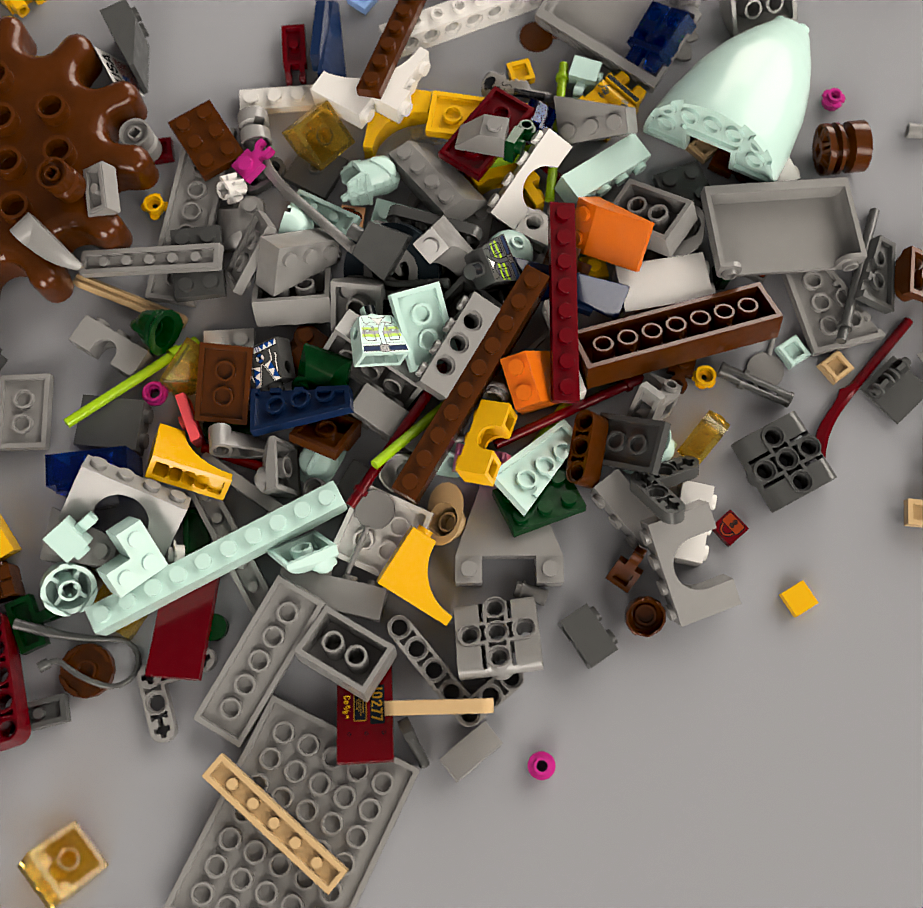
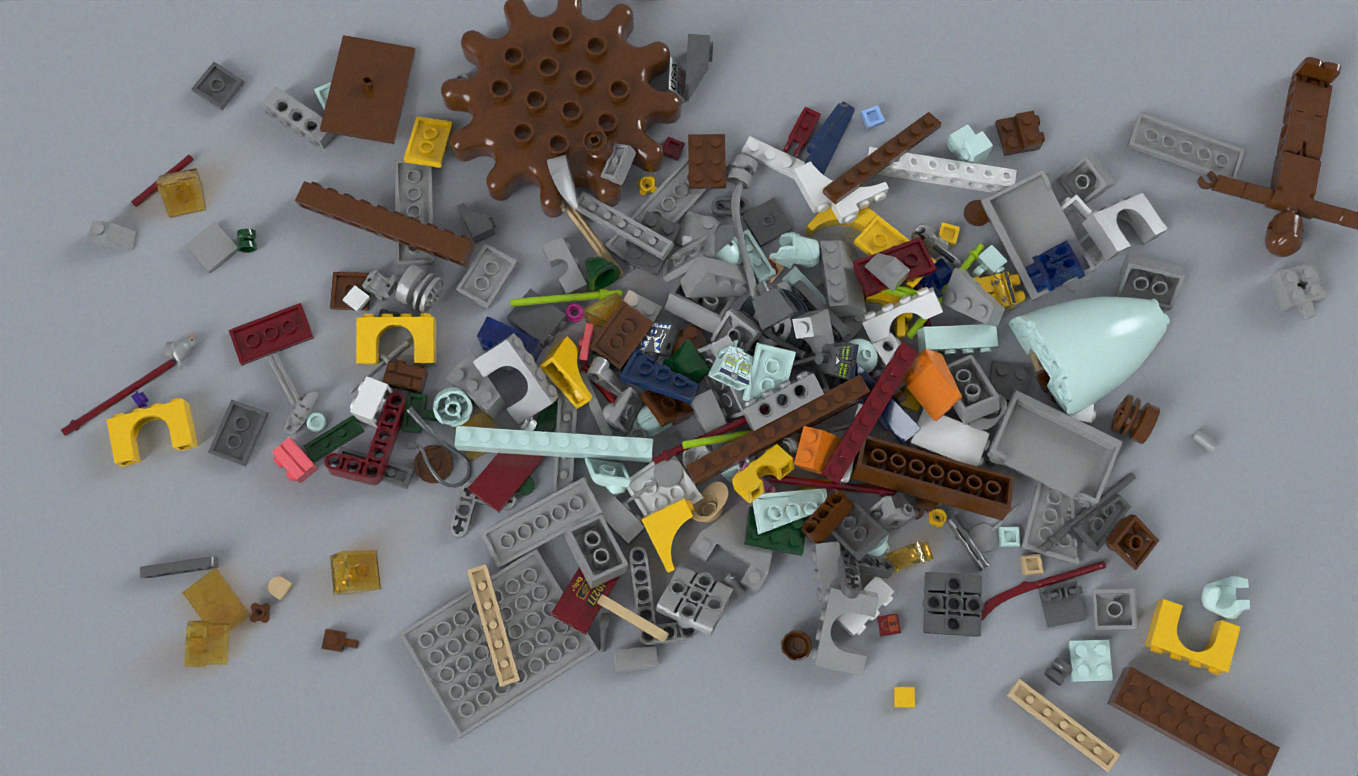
camera: 30 degrees right, 0 degrees up
(71, 538) = (474, 378): light aqua brick -> none
(137, 558) = (504, 415): light aqua brick -> none
(139, 133) = (664, 134): light grey wheel -> none
(231, 188) = (703, 204): white gear -> none
(250, 163) = (725, 194): dark pink plate -> none
(319, 136) = (782, 201): clear yellow slope -> none
(517, 139) = (907, 286): dark green plate -> none
(532, 762) = (678, 700): dark pink plate -> none
(588, 635) = (753, 635): dark grey brick -> none
(626, 571) = (802, 609): reddish brown plate -> none
(830, 103) = (1153, 380): dark pink plate -> none

